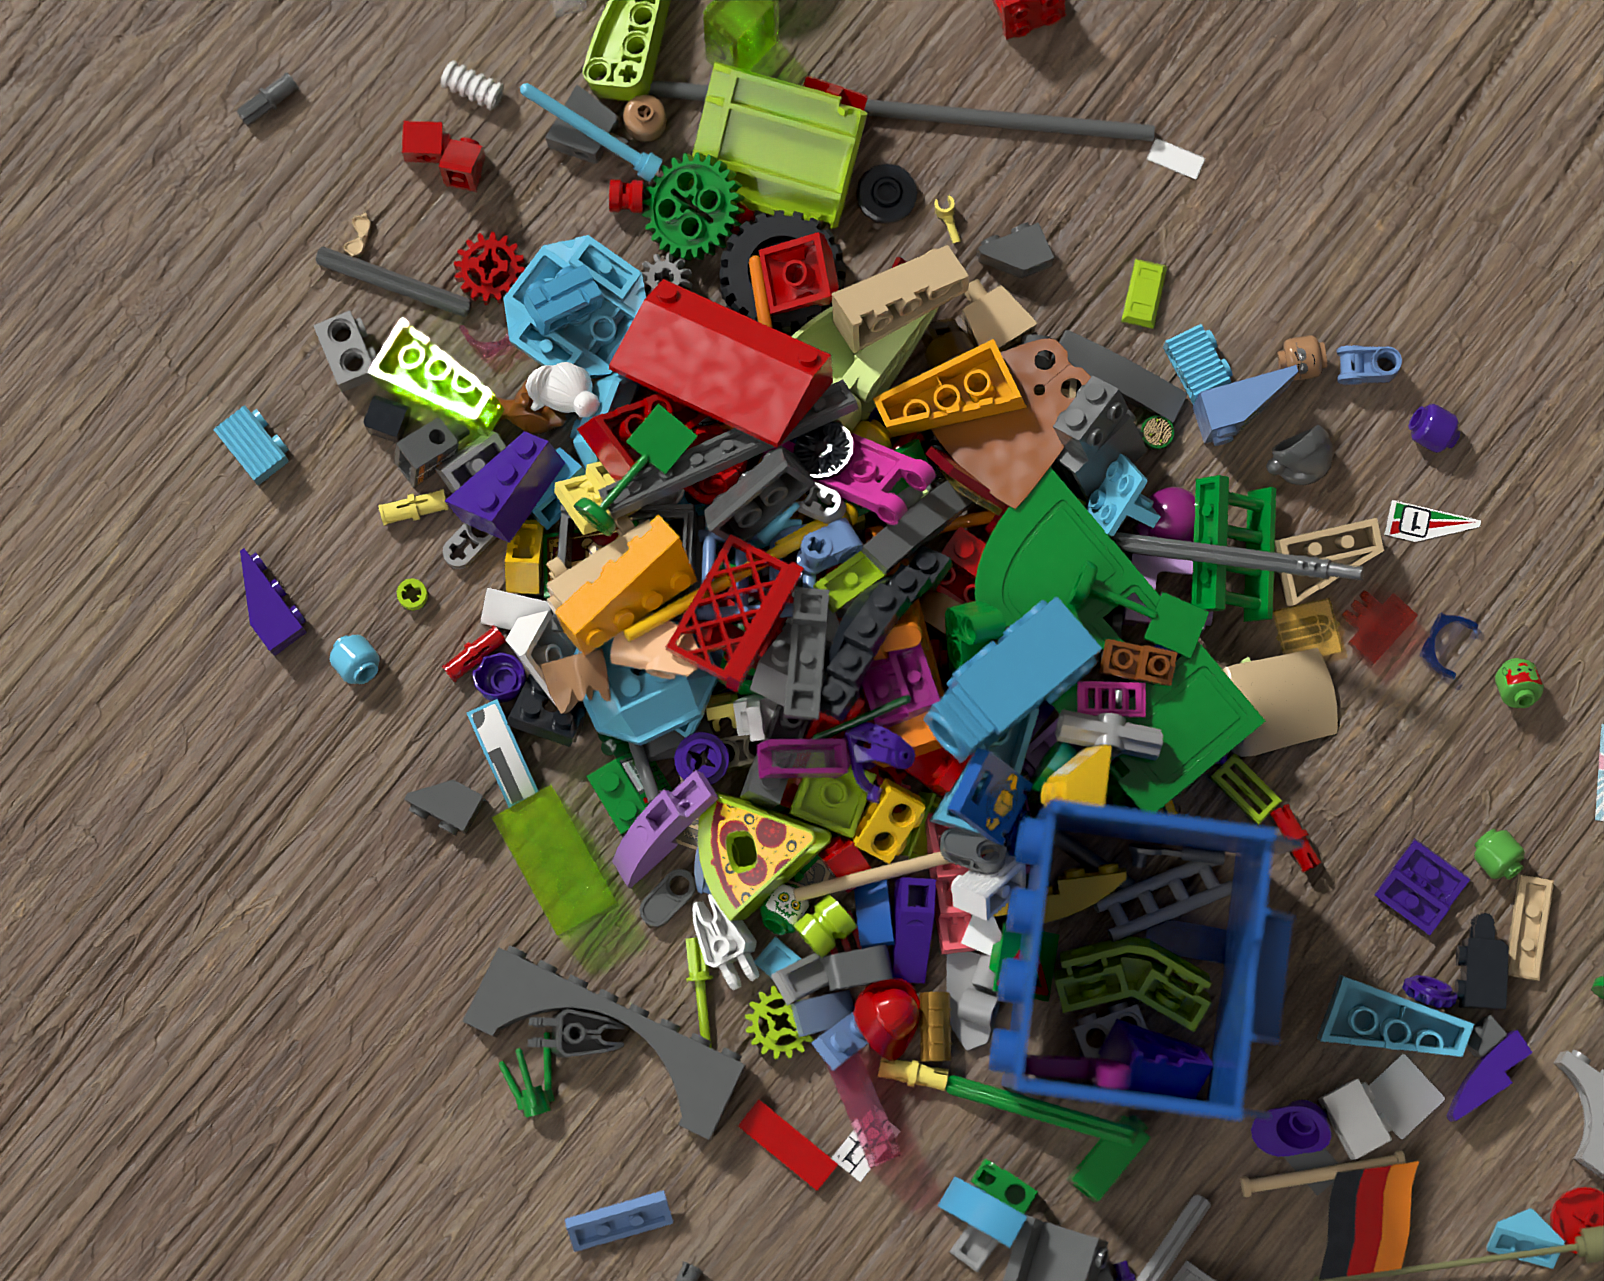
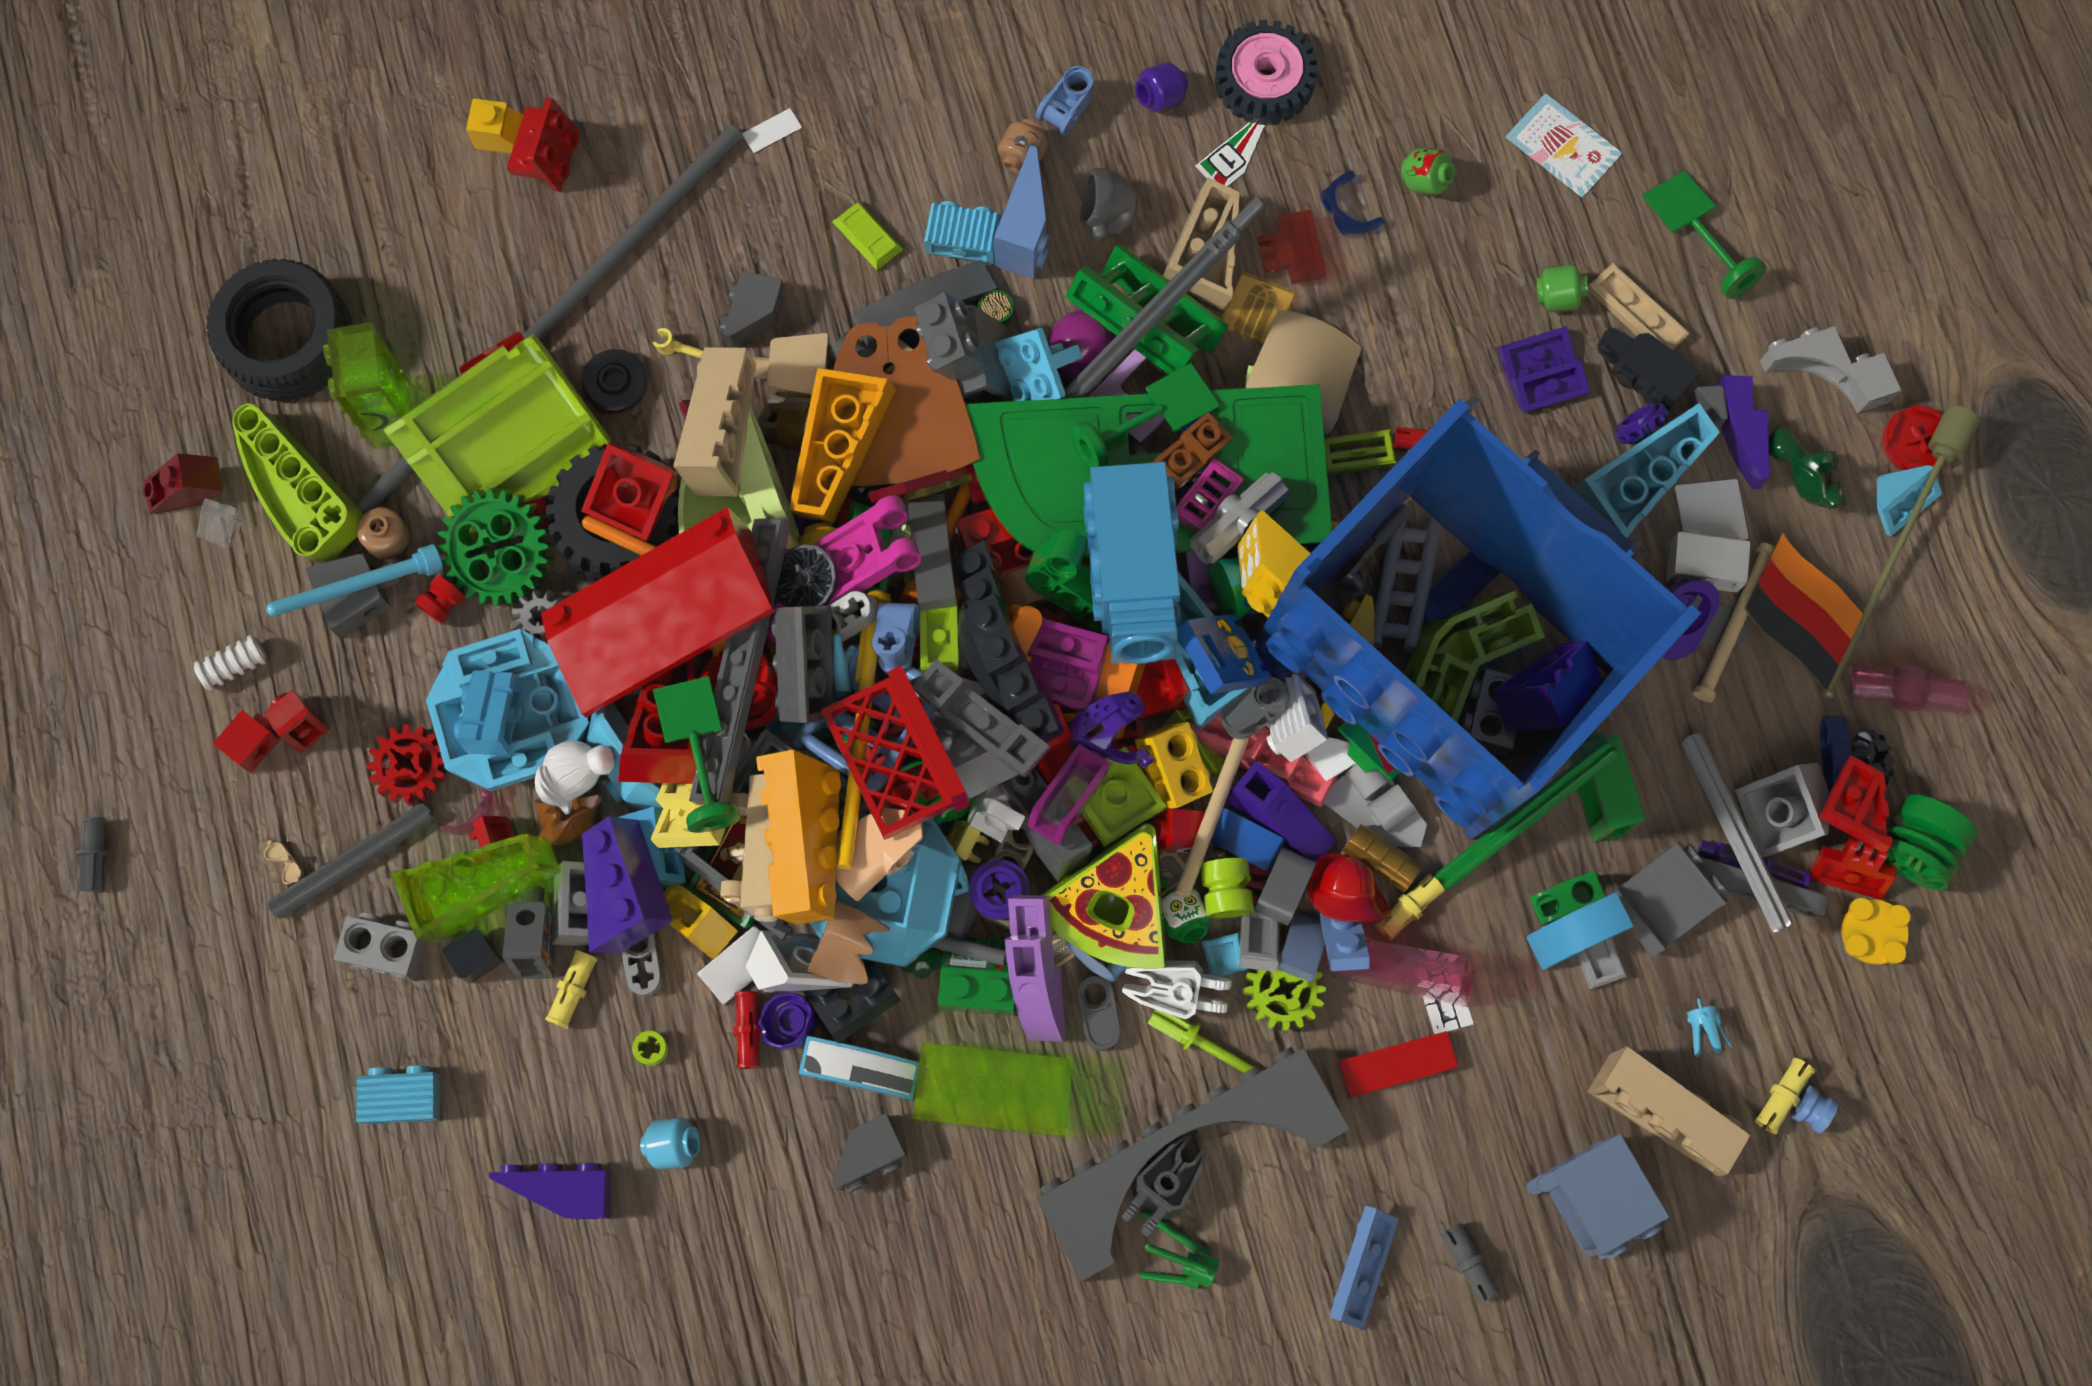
camera: 55 degrees left, 5 degrees down
(484, 366) = (490, 829): none -> red tile
(863, 718) = (1071, 715): dark green axle -> none
(1100, 1070) = (1537, 729): magenta beam -> none
(1490, 1152) = (1808, 470): none -> dark green animal
(1530, 484) = (1266, 95): none -> wheel

